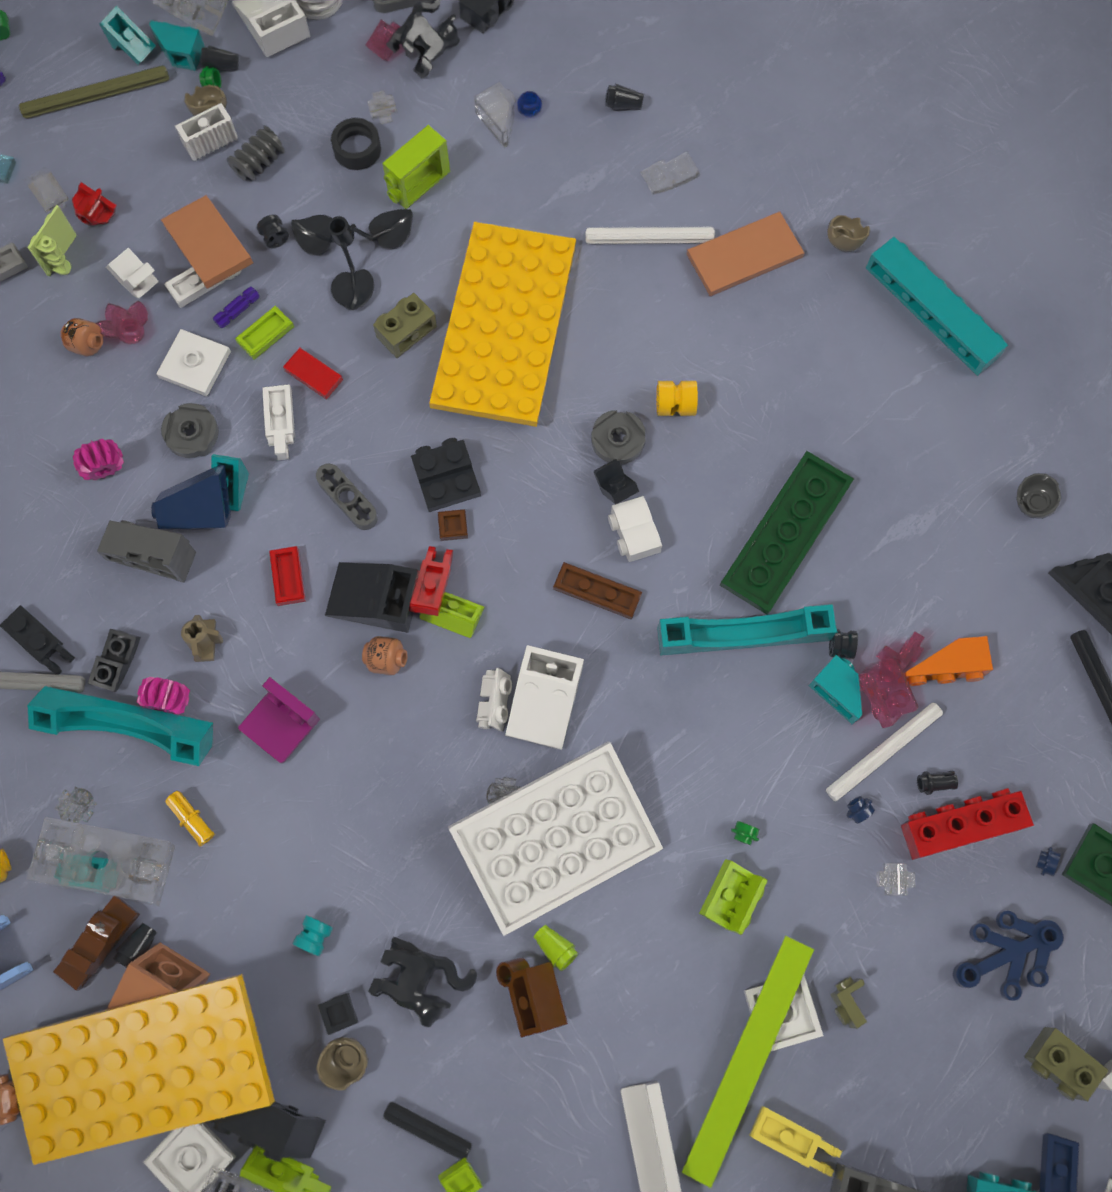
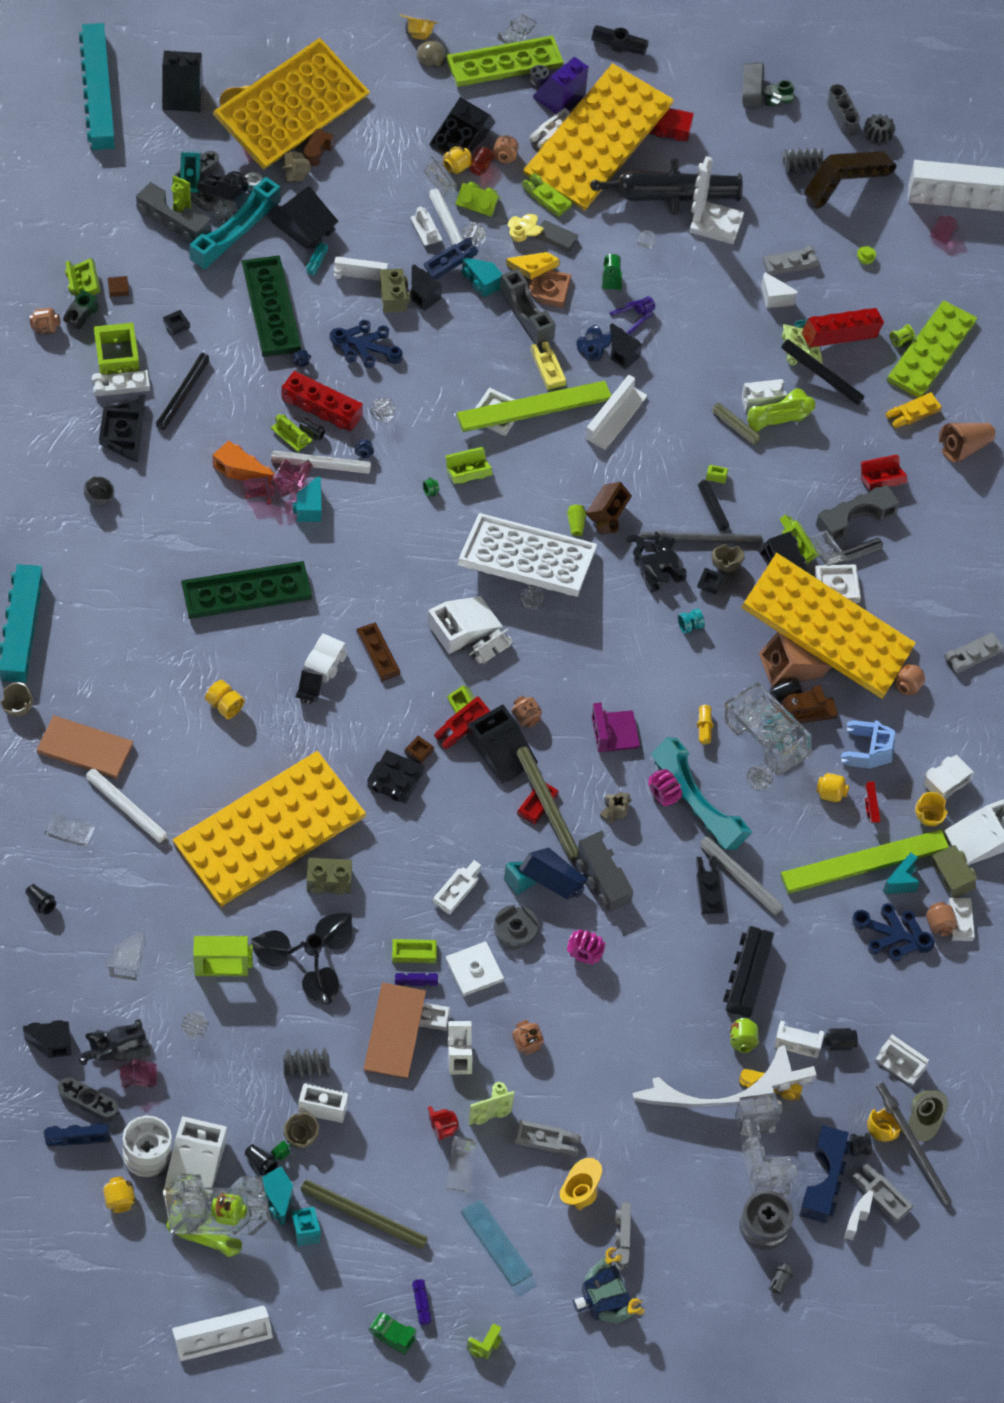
camera: 140 degrees left, 15 degrees down
(115, 660) = (677, 838): black slope -> none
(121, 321) = (492, 1032): clear pink plate -> none
(269, 574) = (548, 803): none -> olive axle
(272, 230) = (347, 1004): black wheel -> none
(313, 373) = (410, 900): red tile -> none
(353, 127) = (236, 1002): black tyre -> none
(364, 505) = (457, 821): dark grey beam -> none
(446, 1023) = (705, 537): none -> flat silver bar
(529, 98) = (100, 944): clear blue plate -> none
(620, 423) = (278, 723): dark grey plate -> none
(704, 635) = (357, 584): teal arch -> none
(844, 644) = (283, 517): black wheel -> none
(847, 1009) = (461, 391): olive bracket -> none
(951, 756) = (290, 433): none -> lime hinge
(1037, 1103) = (424, 289): none -> black slope

